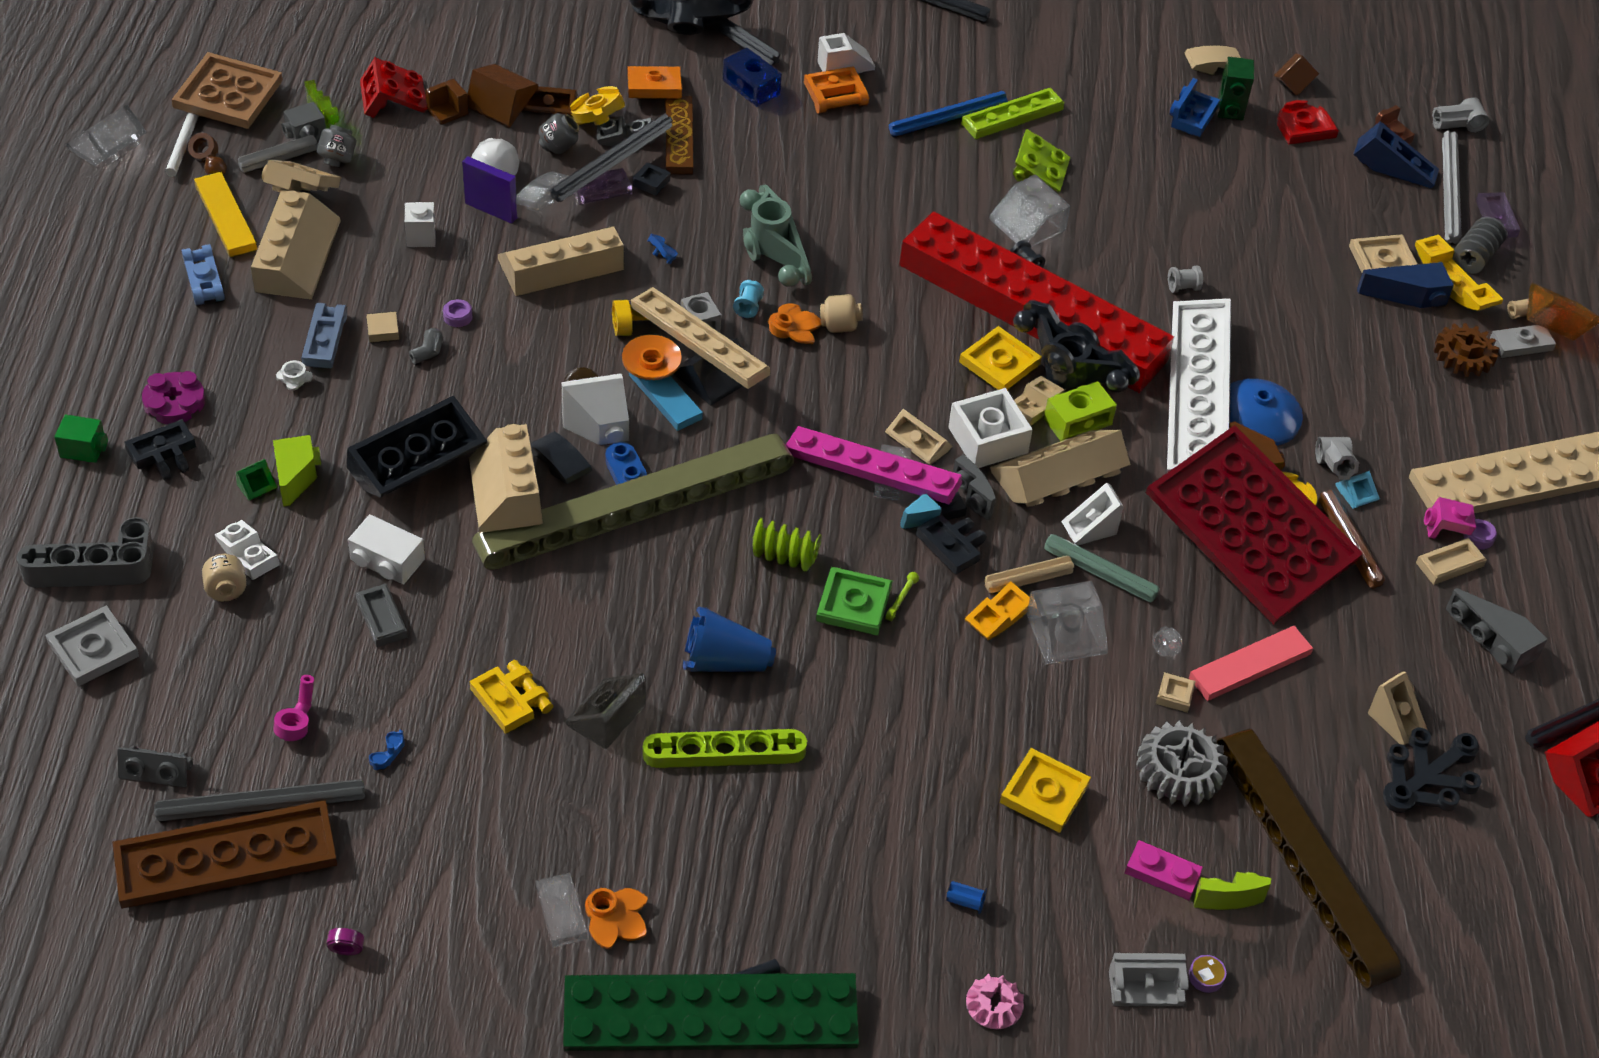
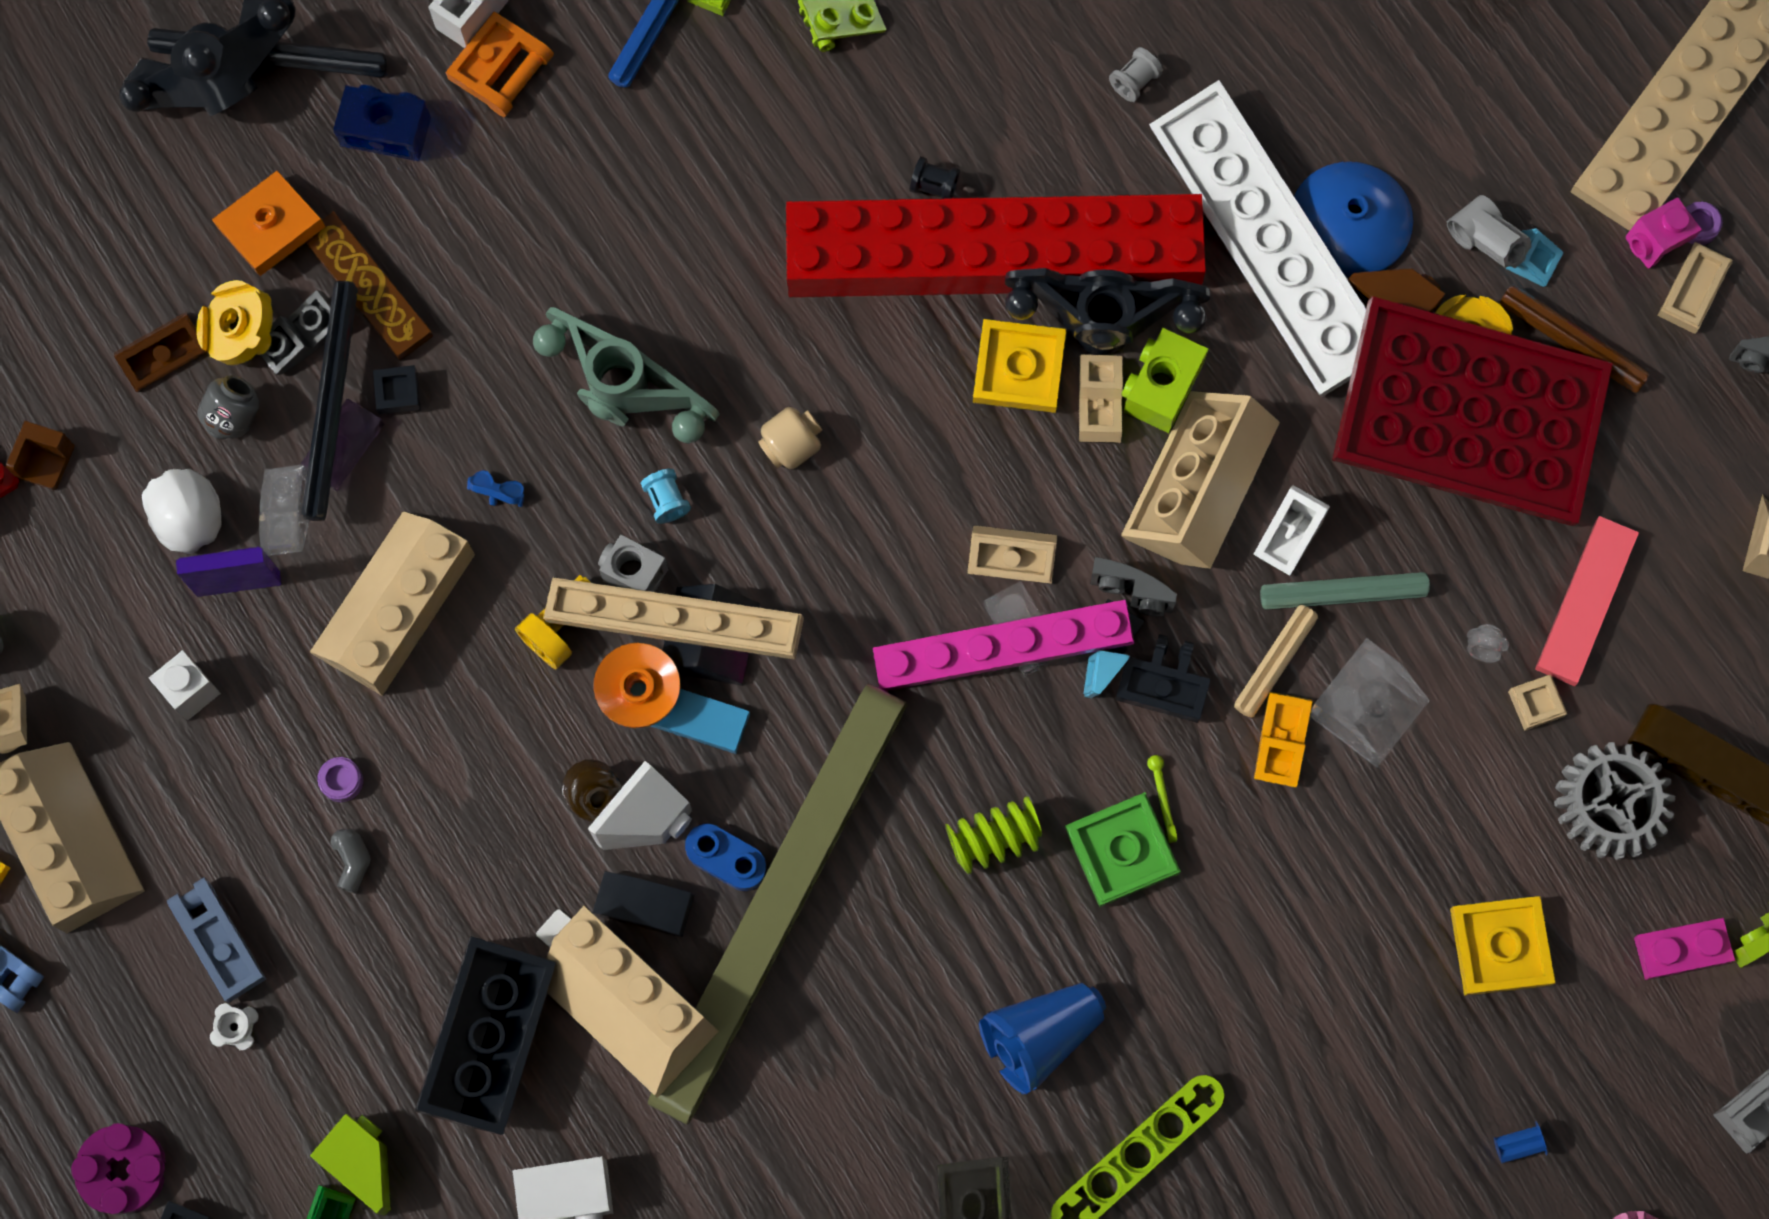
camera: 30 degrees left, 25 degrees up
(382, 327) = (271, 871): tan tile -> none
(499, 93) = (96, 392): reddish brown slope -> none
(794, 323) = (747, 484): orange plate -> none
(990, 428) = (1092, 490): white brick -> none
(1031, 212) = (887, 104): clear slope -> none

